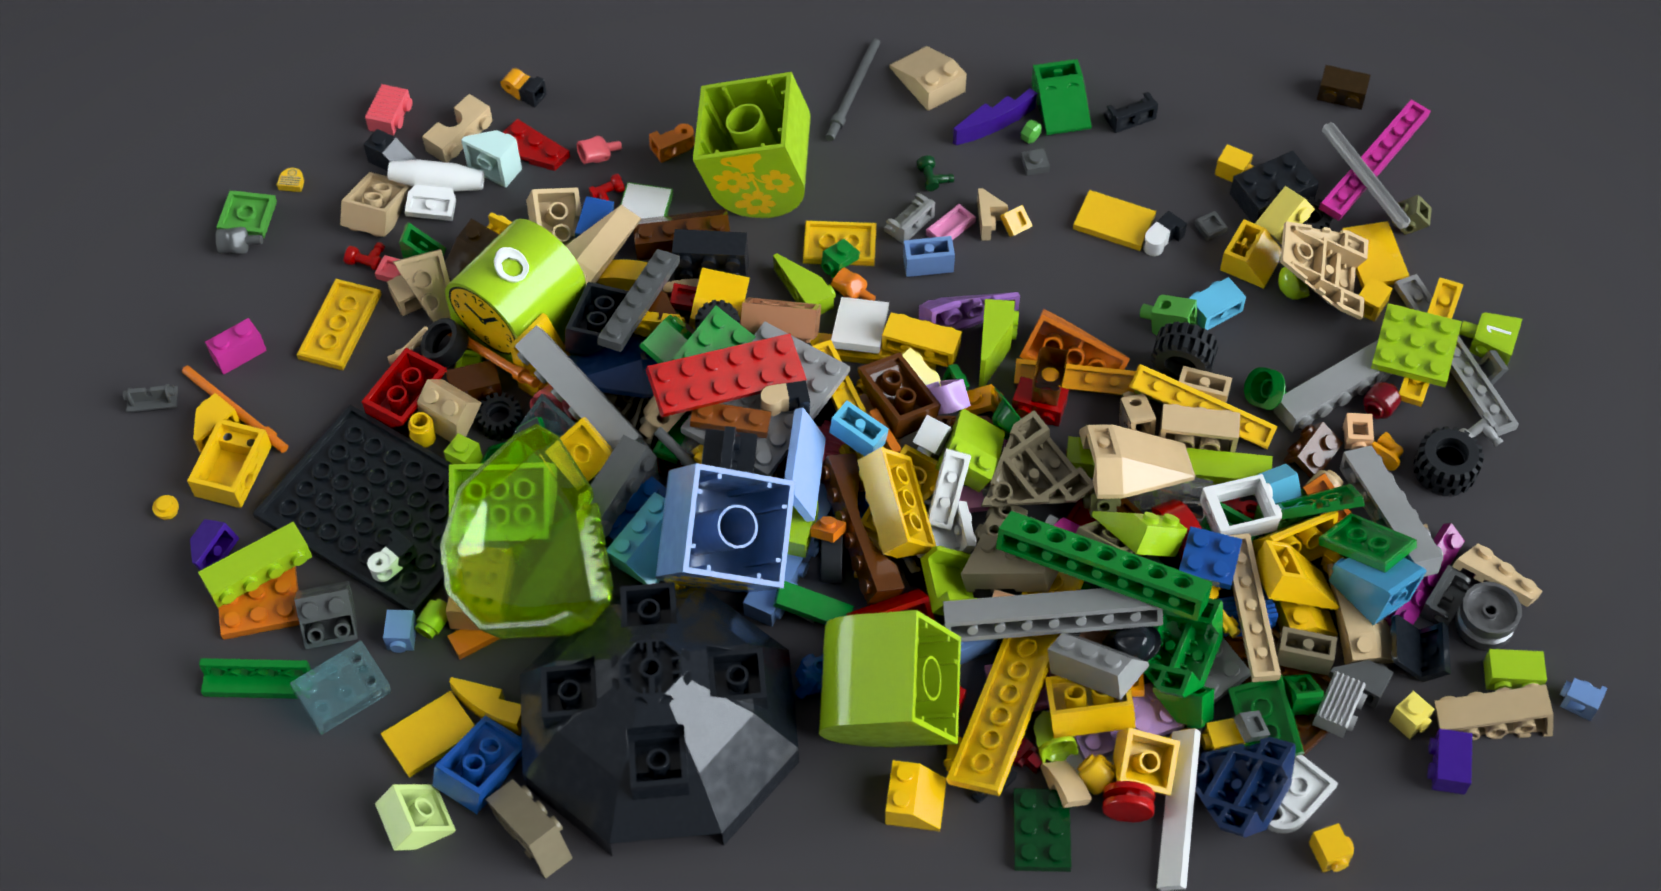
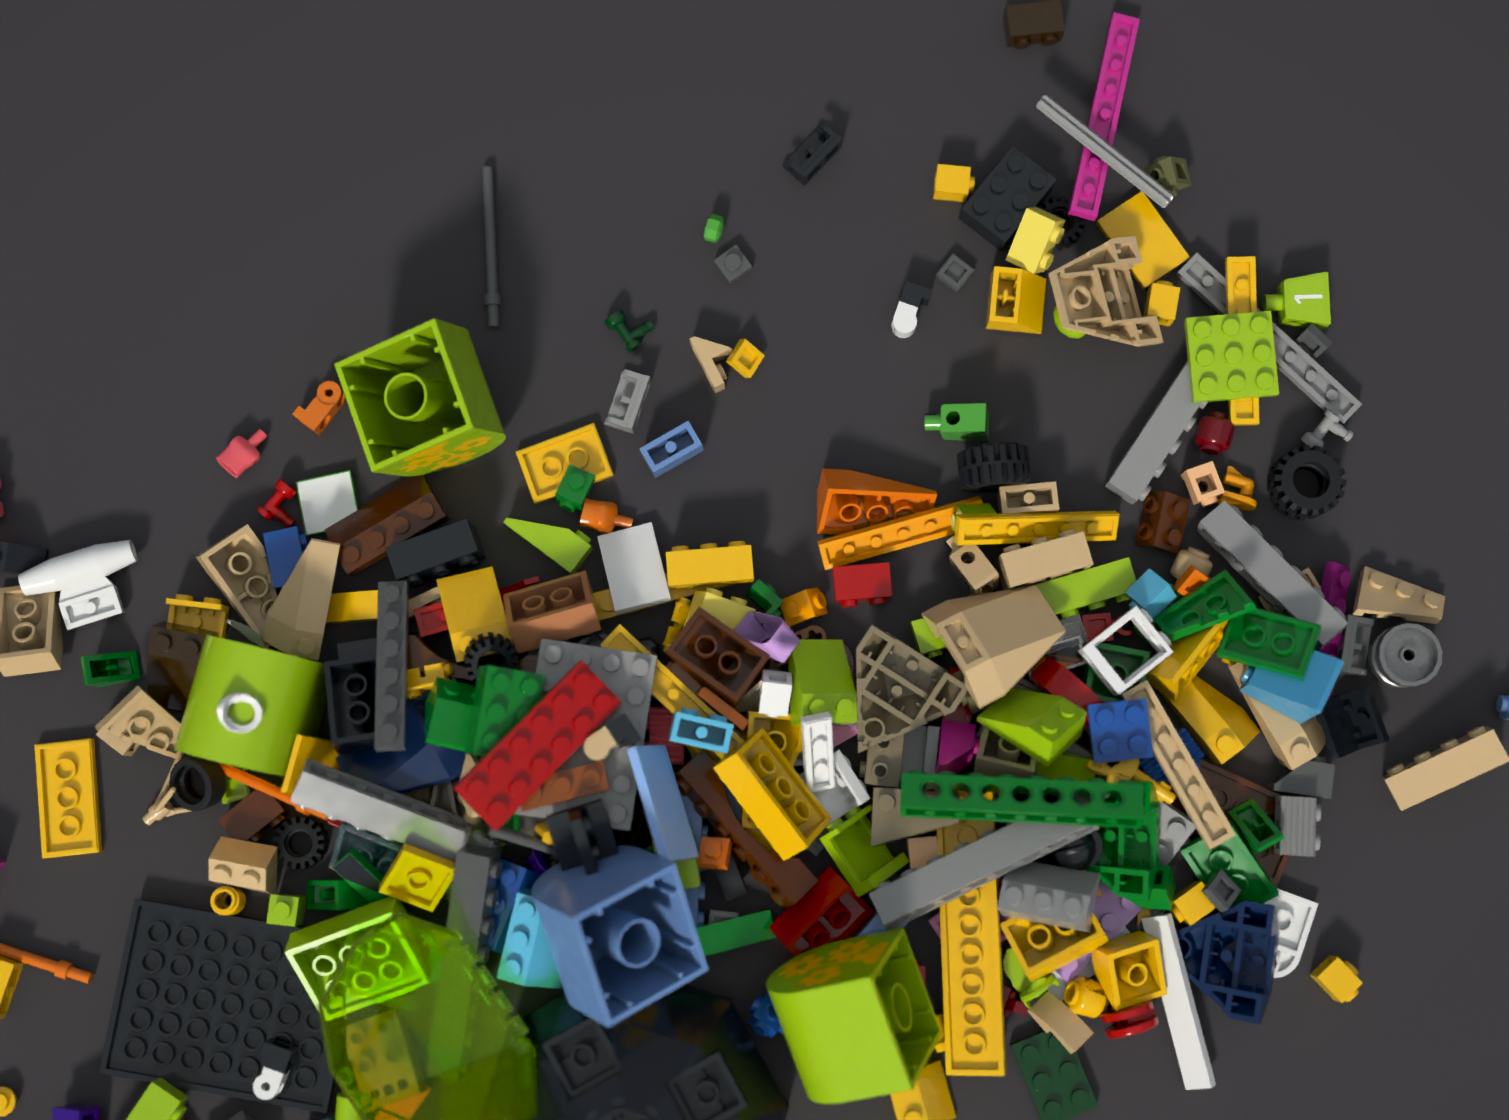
camera: 20 degrees left, 25 degrees up
(229, 463) = (45, 1031): yellow piece -> none
(373, 260) = (38, 708): red piece -> none
(386, 269) = (89, 708): coral plate -> none
(398, 390) = (182, 862): red slope -> none
(472, 119) = (69, 514): tan arch -> none
(494, 154) = (133, 518): light aqua slope -> none
(524, 87) = (117, 400): leg -> none
(537, 147) = (158, 476): red wing -> none
(930, 76) = (568, 194): tan slope -> none
(952, 223) = (675, 389): bright pink tile -> none
(961, 311) = (725, 511): medium lavender wedge -> none
(990, 120) = (660, 232): dark purple slope -> none
(998, 331) = (785, 518): lime slope -> none
(1004, 415) = (840, 622): green piece -> none
(1048, 358) = (877, 556): reddish brown piece -> none
(1061, 96) = (729, 168): green slope -> none
(1114, 220) = (849, 309): yellow tile -> none
(1218, 303) = (1000, 382): medium azure brick -> none
(1264, 388) = (1092, 473): green piece -> none
(1292, 577) = (1206, 708): yellow slope -> none
(1306, 650) = (1245, 782): dark tan brick -> none
(1412, 715) = (1366, 800): light yellow brick -> none
(1451, 761) = (1420, 837): dark purple brick -> none
(1513, 668) = (1447, 704): lime brick -> none

